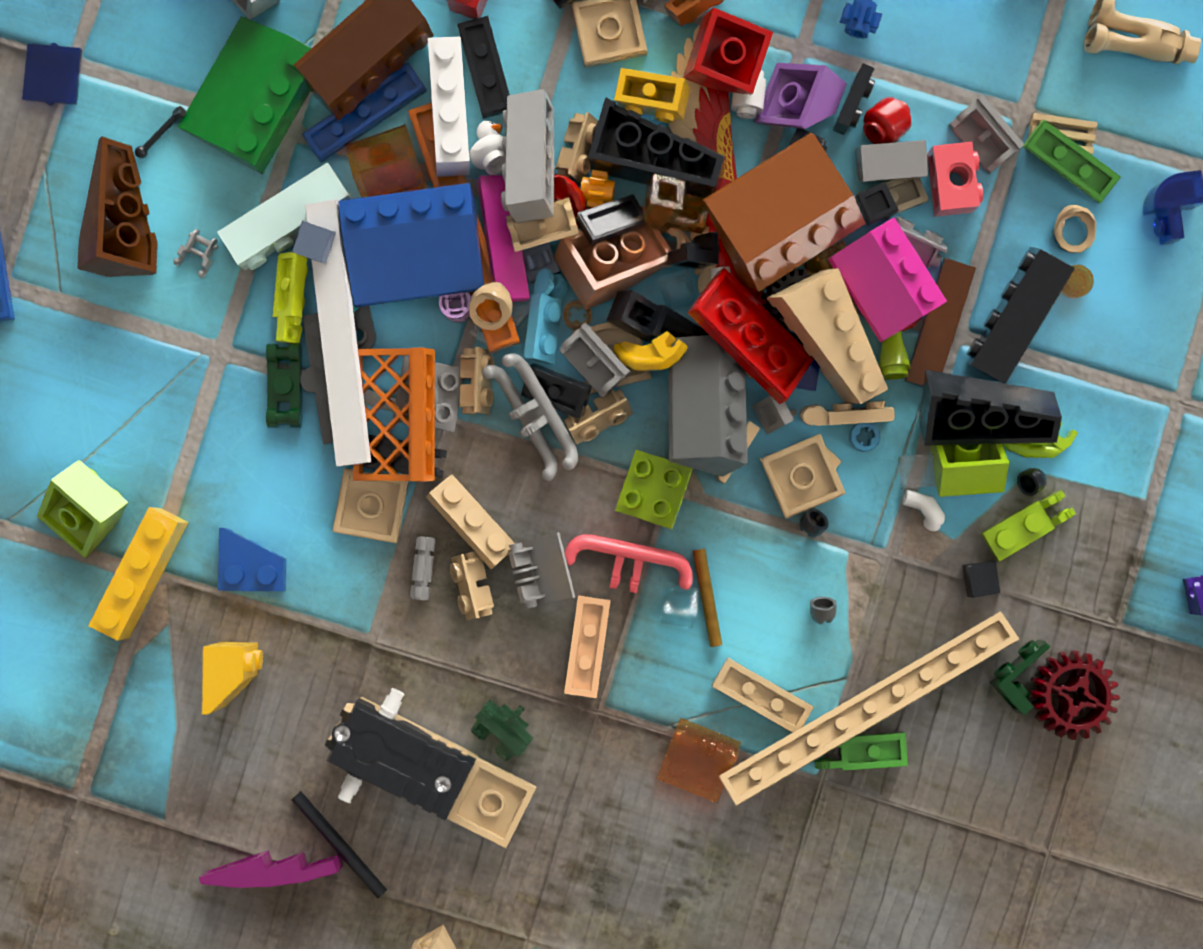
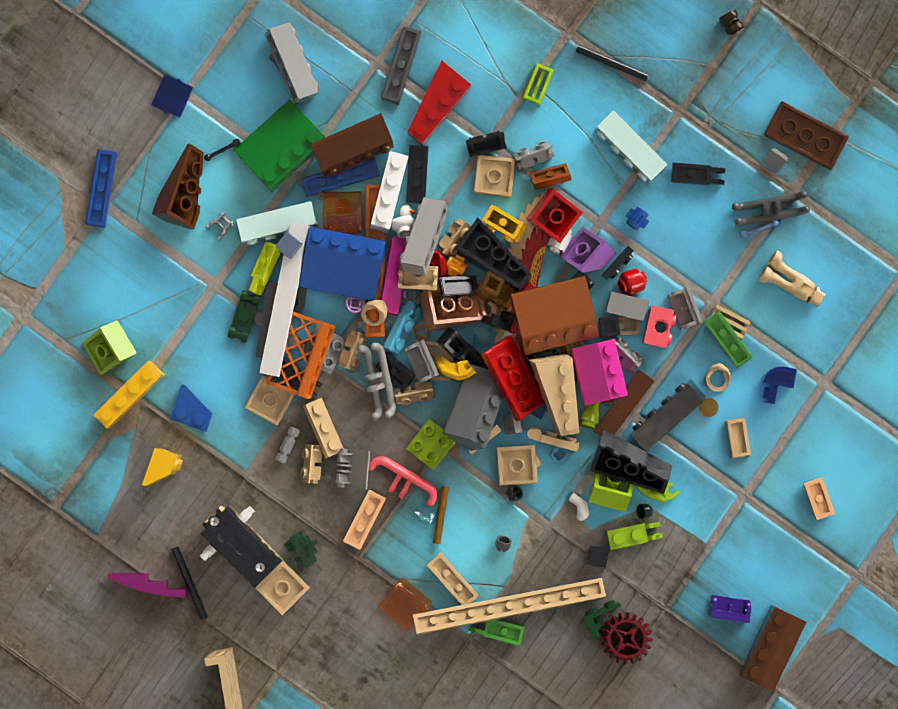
camera: 20 degrees right, 0 degrees up
(1139, 314) = (738, 438): none -> tan tile

